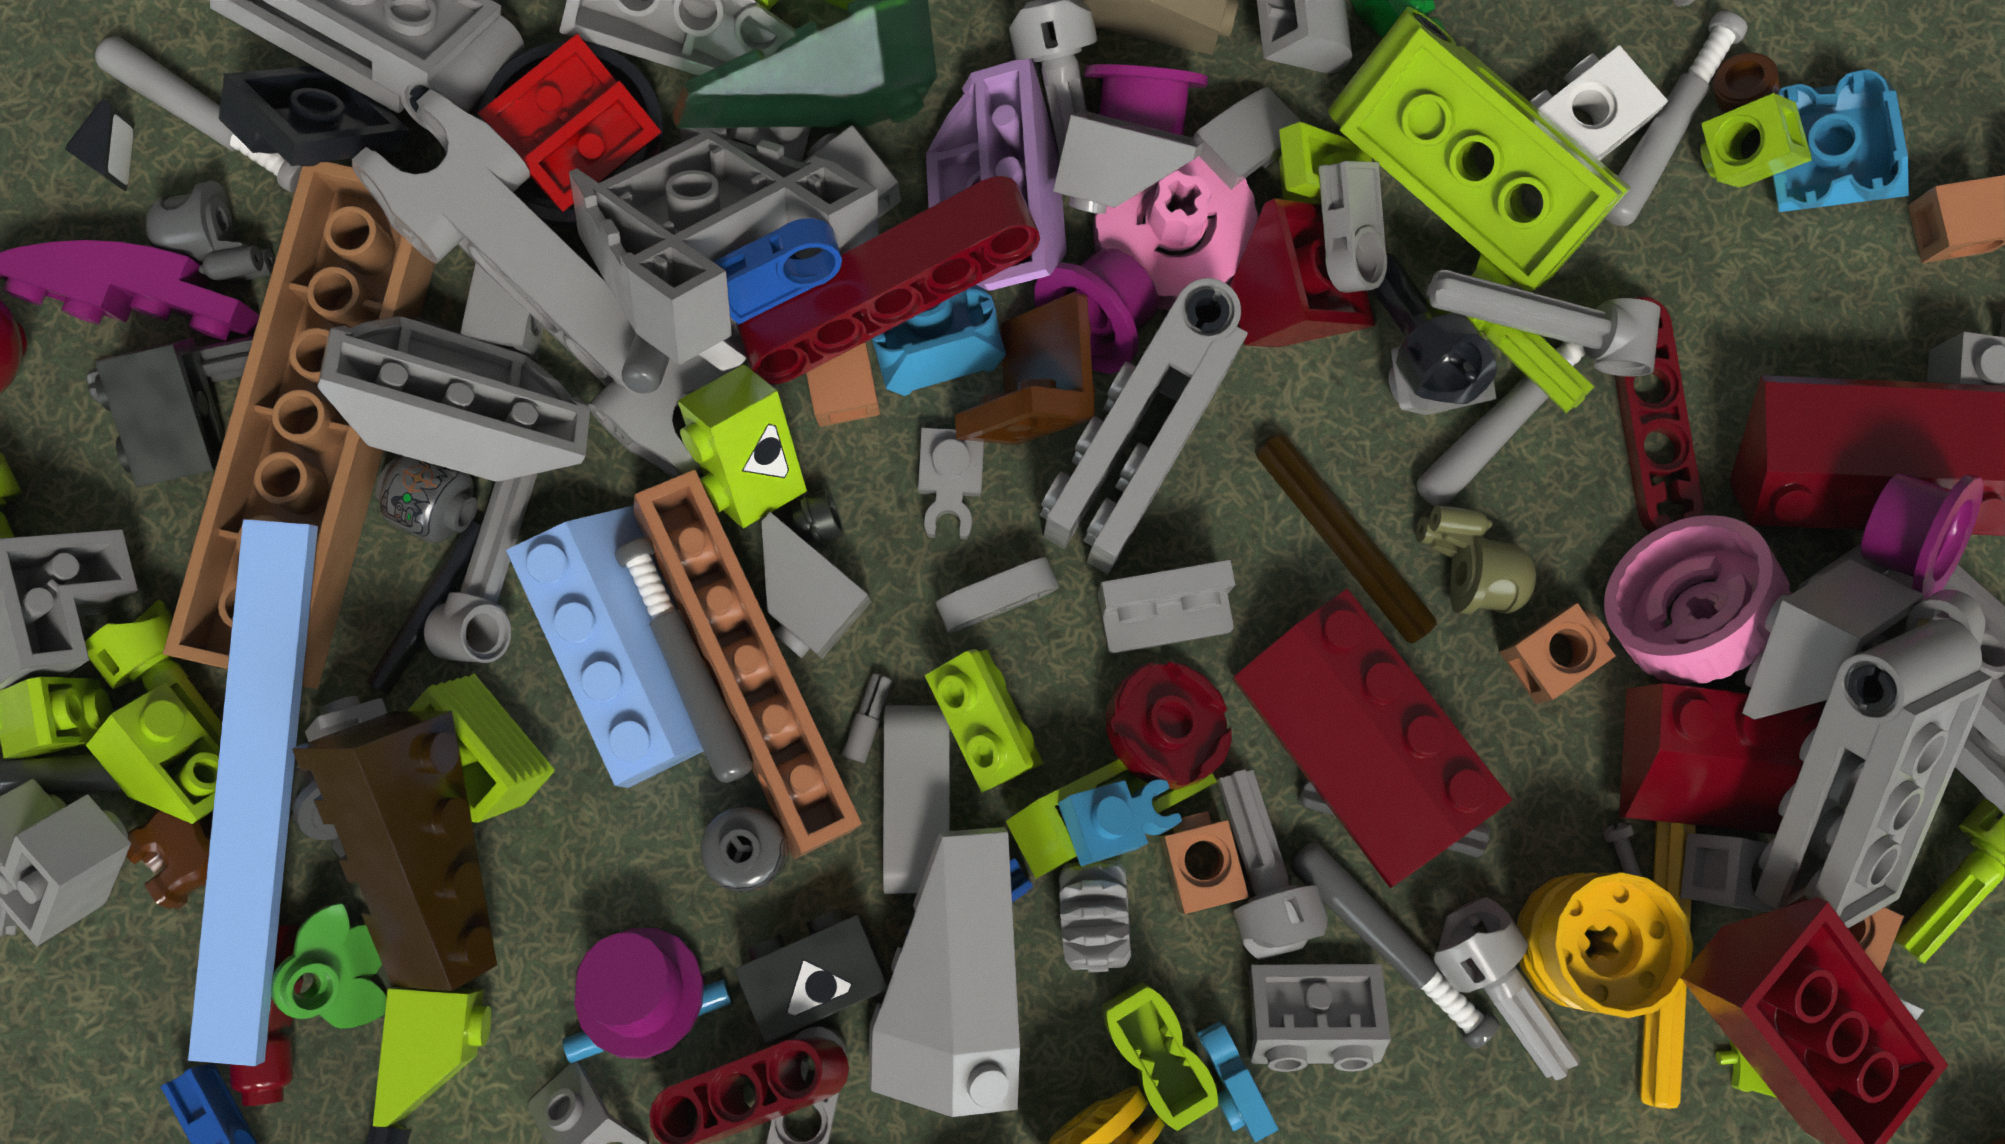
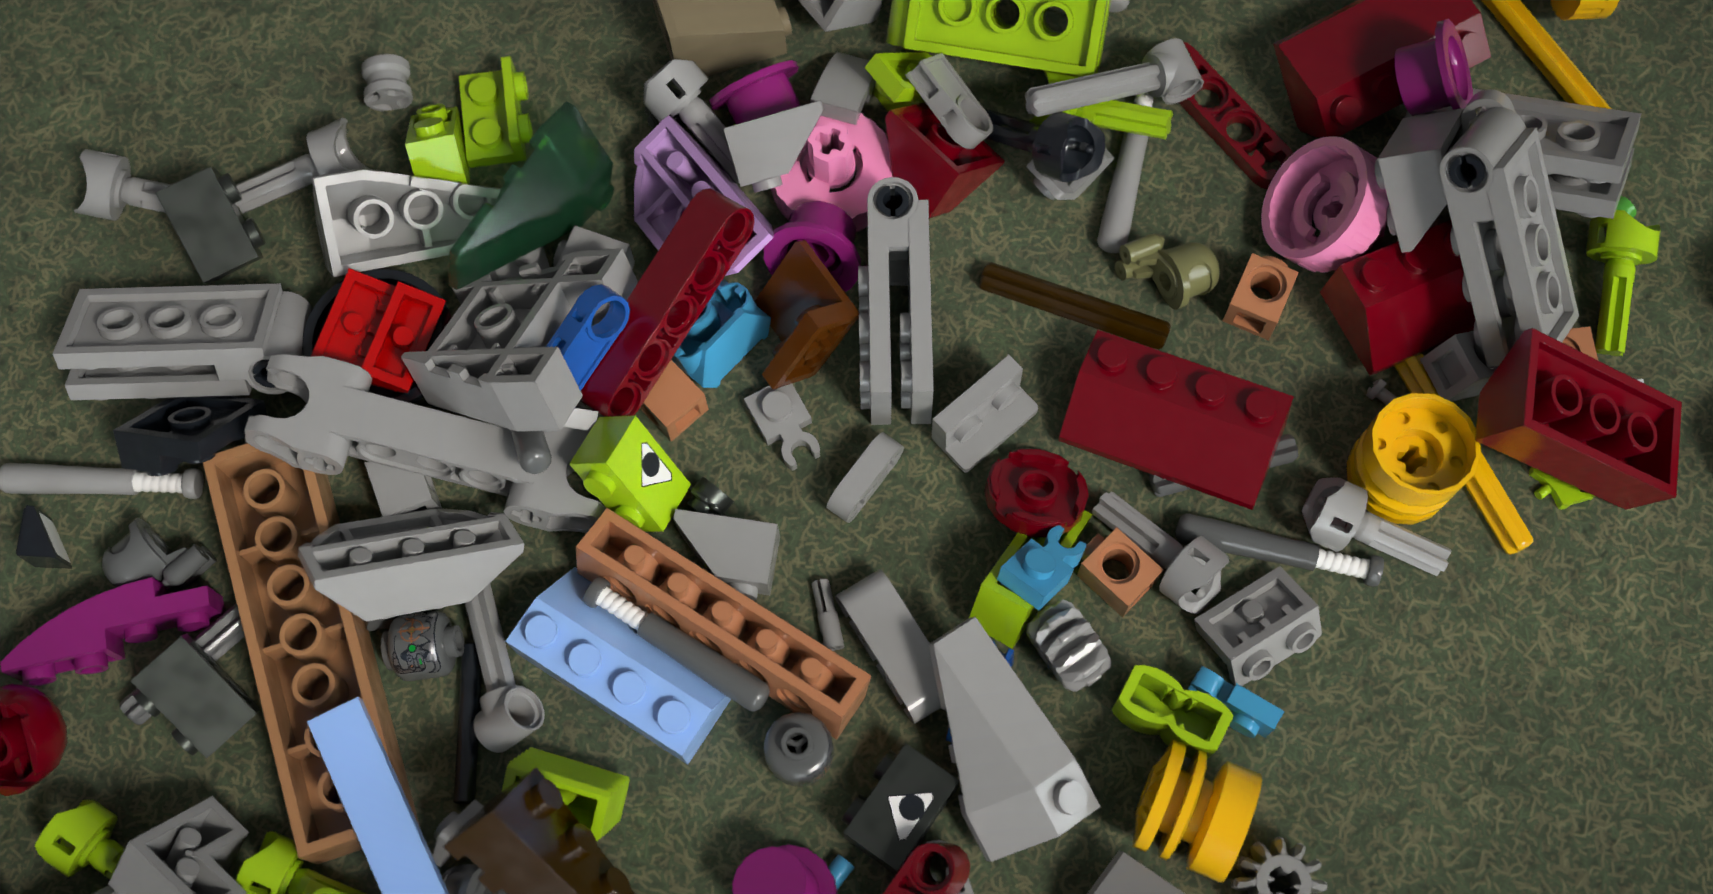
camera: 25 degrees left, 10 degrees down
(983, 718) = (909, 560): lime bracket -> none

